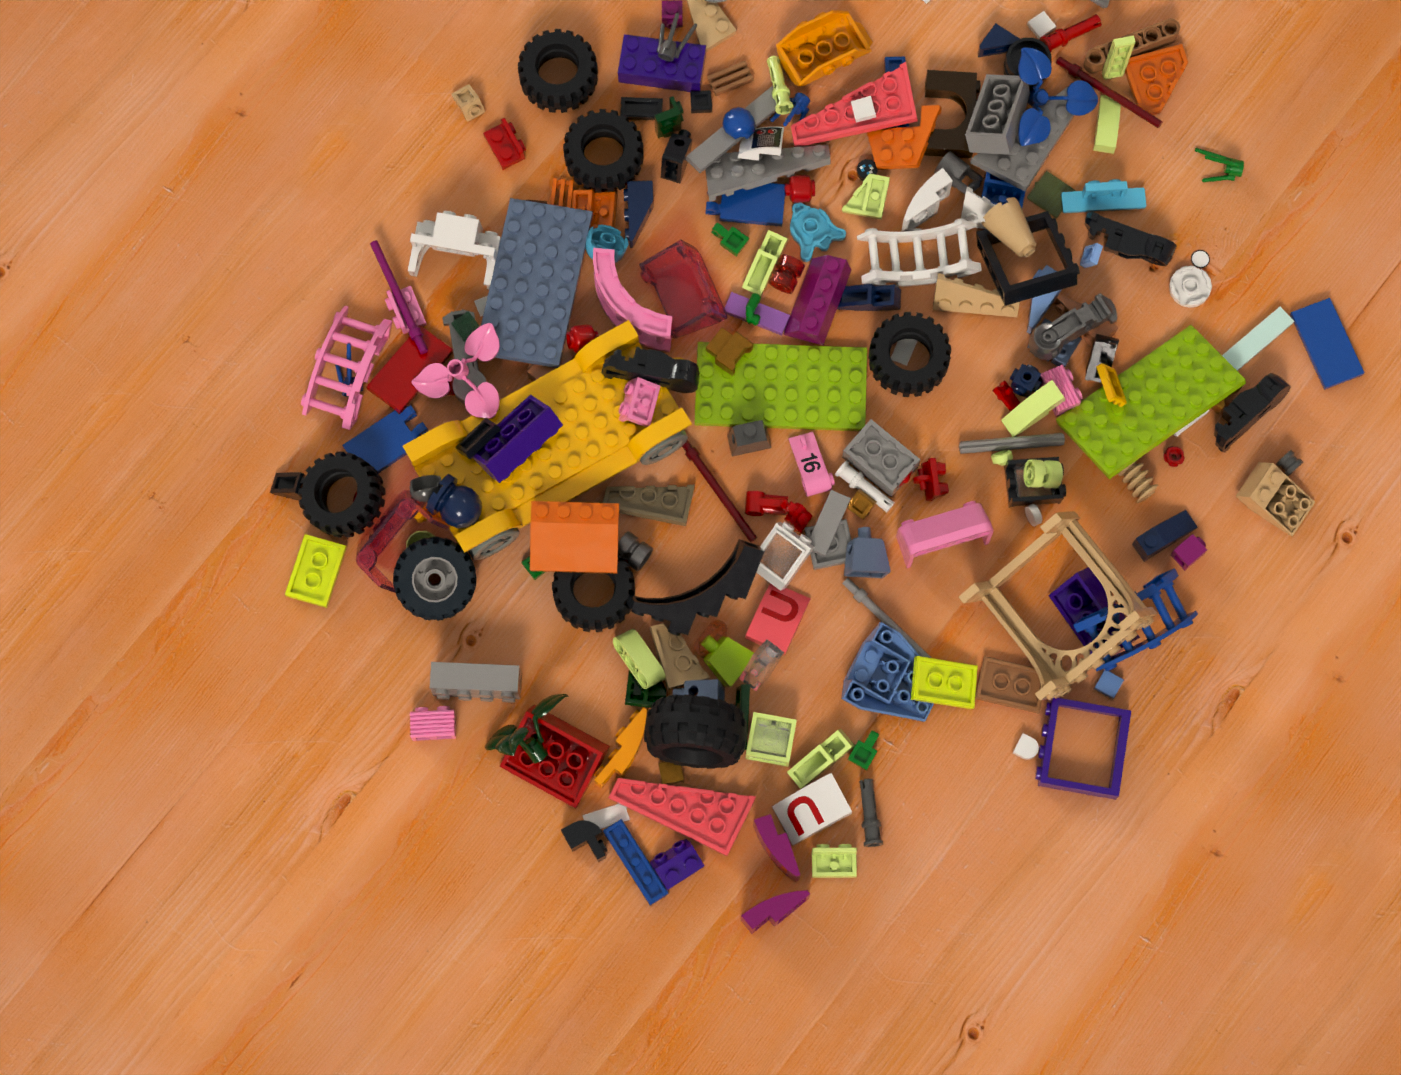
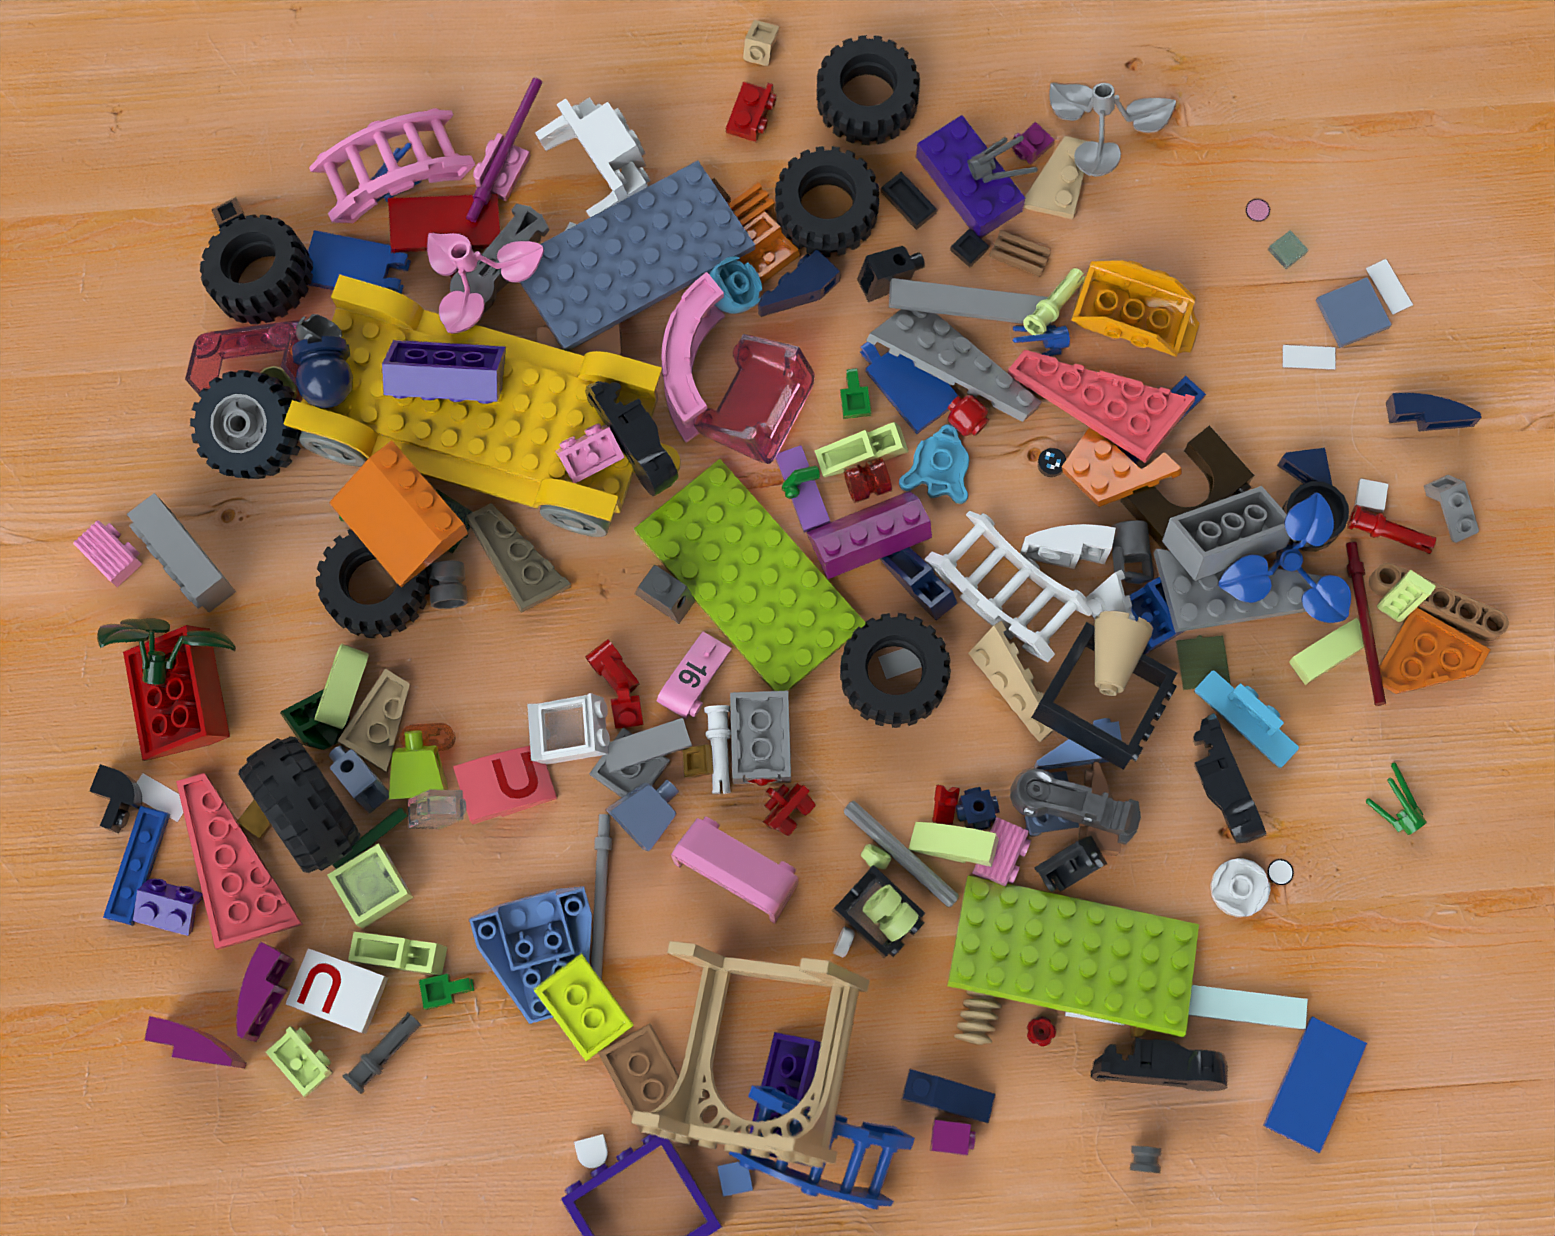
camera: 50 degrees right, 0 degrees up
(315, 571) = (168, 315): neon yellow plate -> none
(465, 325) = (525, 229): clear green tile -> none
(477, 438) = (413, 337): black tile -> none
(580, 336) = (613, 341): red head -> none
(629, 741) = (226, 759): light orange slope -> none
(670, 120) = (917, 233): dark green bracket -> none
(693, 455) = (600, 556): dark red bar -> none
(728, 349) = (734, 492): pearl gold piece -> none
(731, 580) = (454, 695): black arch -> none
(739, 123) = (975, 298): blue hair -> none
(764, 141) = (979, 336): slope -> none
(863, 109) = (1105, 400): white tile -> none
(869, 197) = (1024, 489): yellowish green wing -> none
(1091, 255) = (1174, 757): light blue tile -> none
(1111, 385) = (1051, 899): yellow tile -> none
(1275, 497) = (1094, 1178): tan slope -> none

